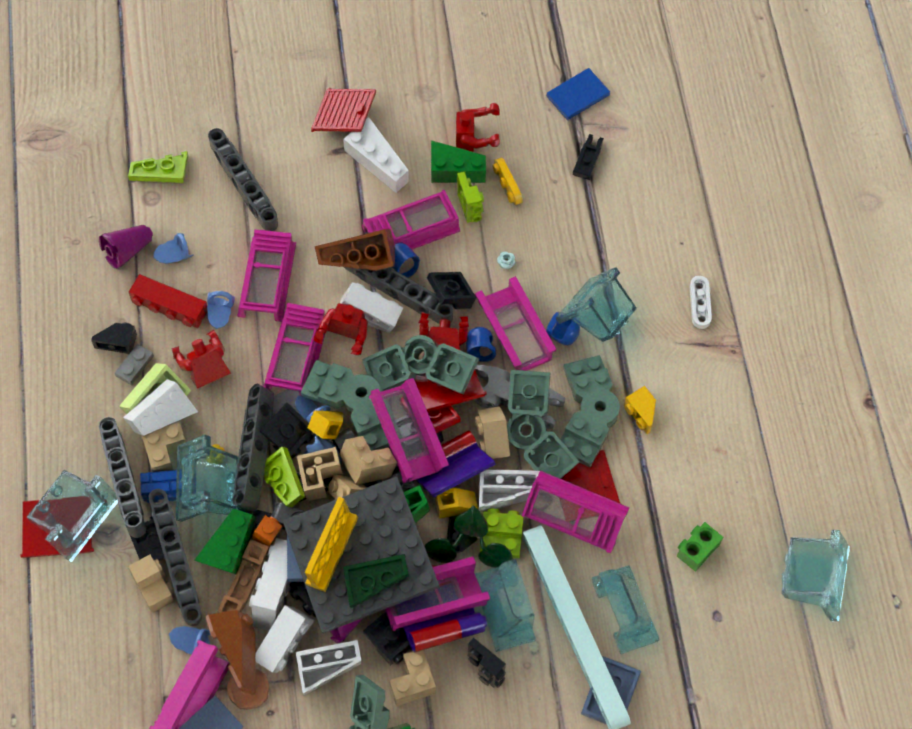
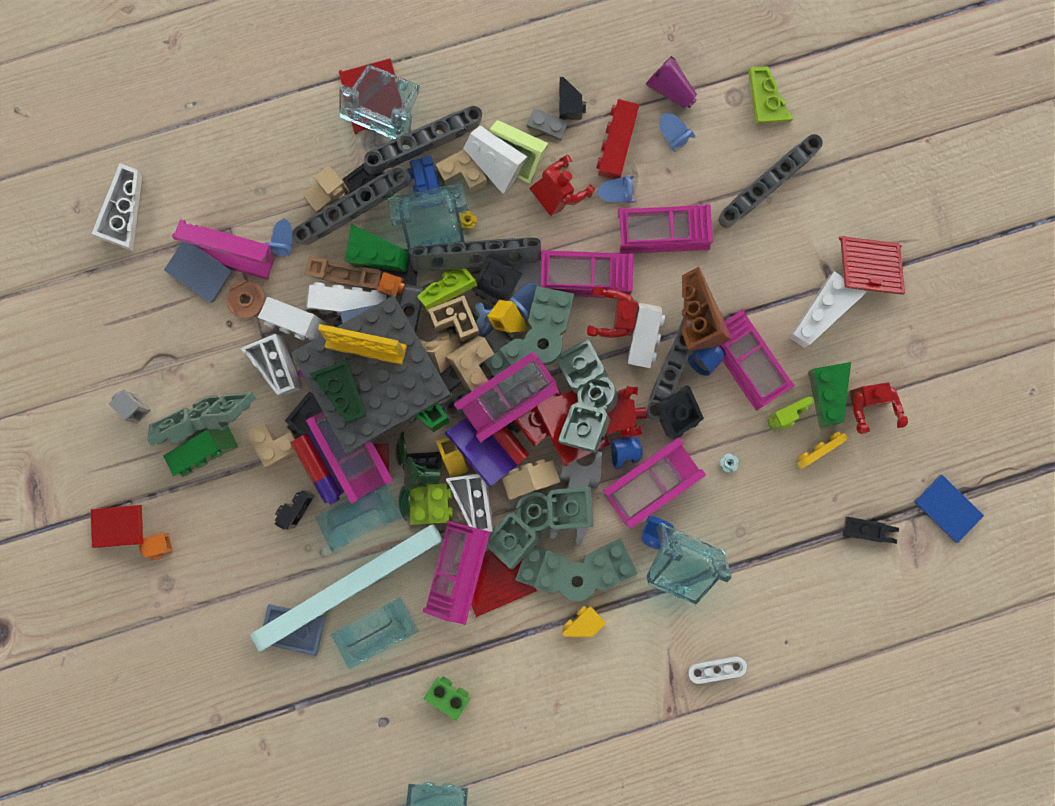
camera: 80 degrees right, 20 degrees up
(237, 640) = (278, 278): dark orange wedge -> none

